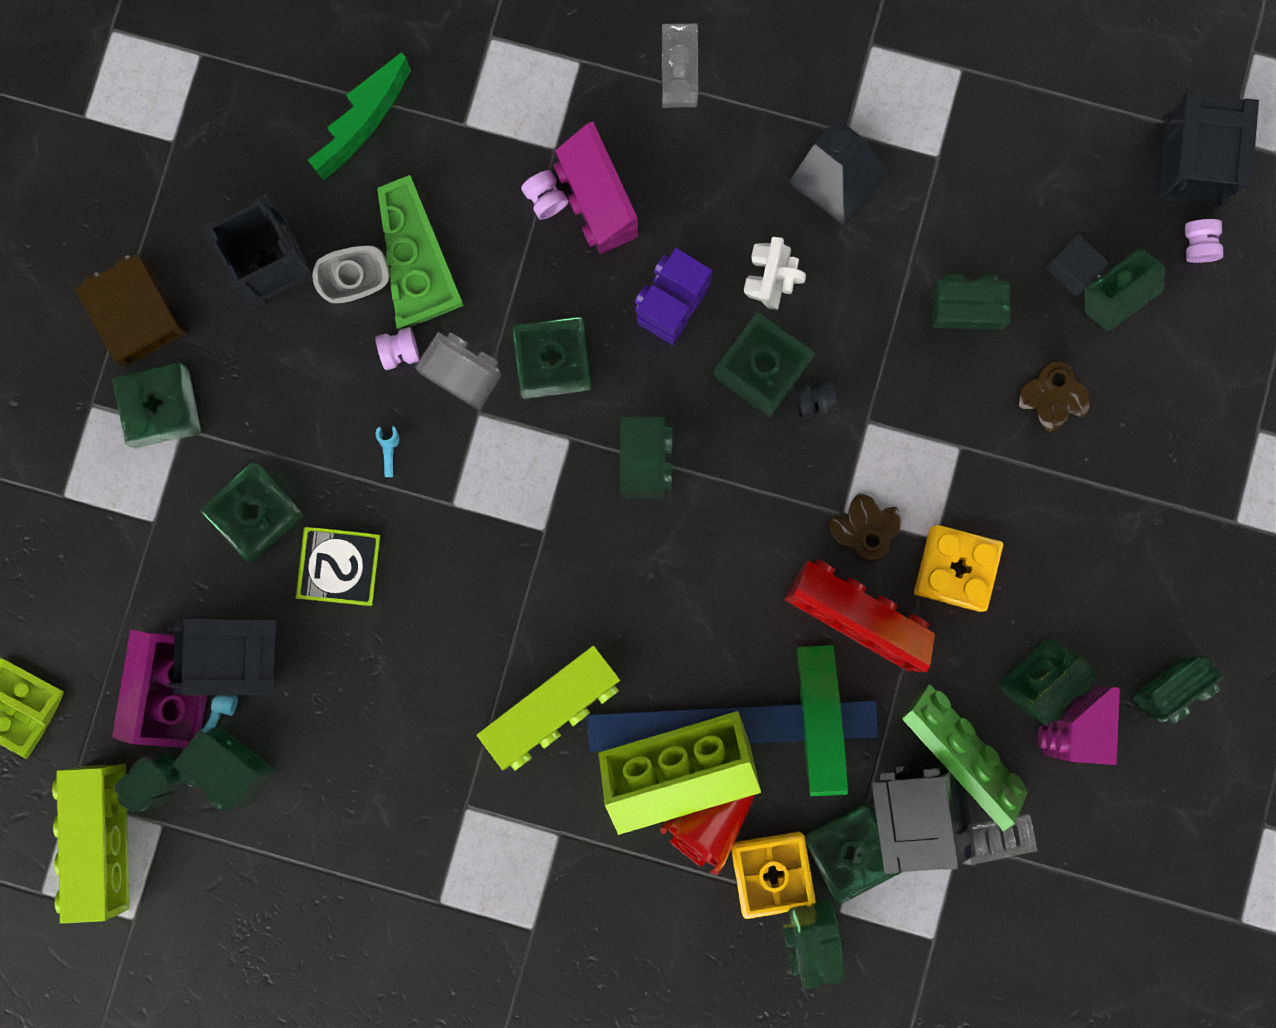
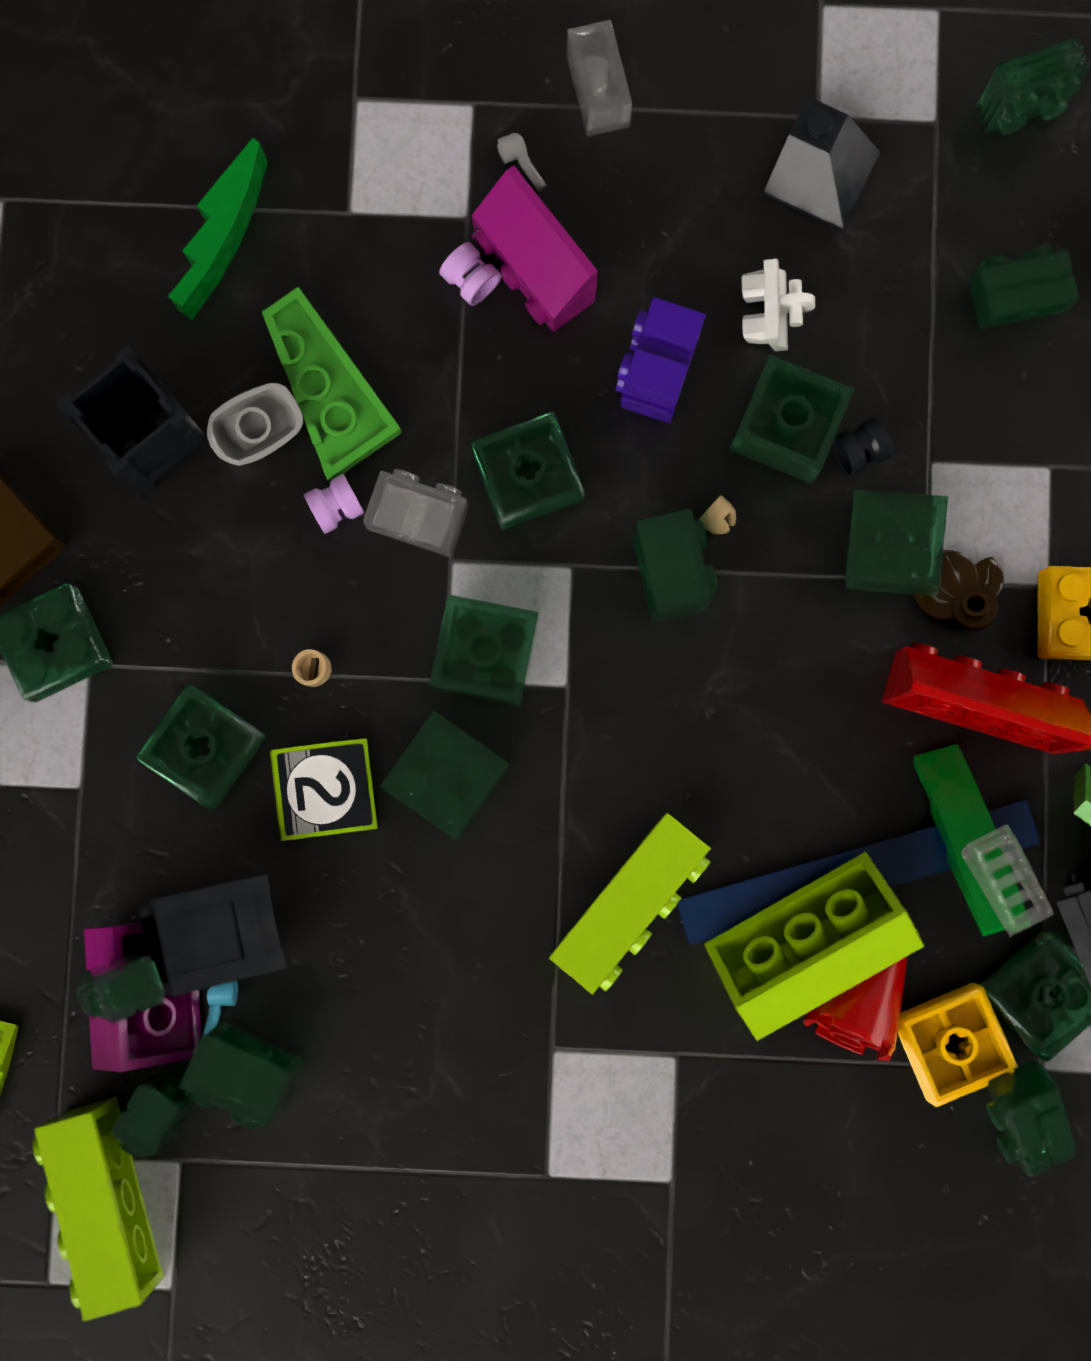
camera: 15 degrees left, 0 degrees up
(144, 680) = (120, 988): none -> clear green brick
(346, 468) = (305, 666): none -> tan hinge
(388, 450) = (351, 631): medium azure hand -> none
(432, 578) = (445, 776): none -> clear green brick
(485, 489) = (484, 650): none -> clear green brick
(602, 104) = (513, 148): none -> light grey hand
(691, 426) = (719, 516): none -> tan hinge
(817, 730) = (1023, 873): none -> clear slope
(821, 479) = (896, 542): none -> clear green brick
(1014, 149) = (1032, 86): none -> clear green brick

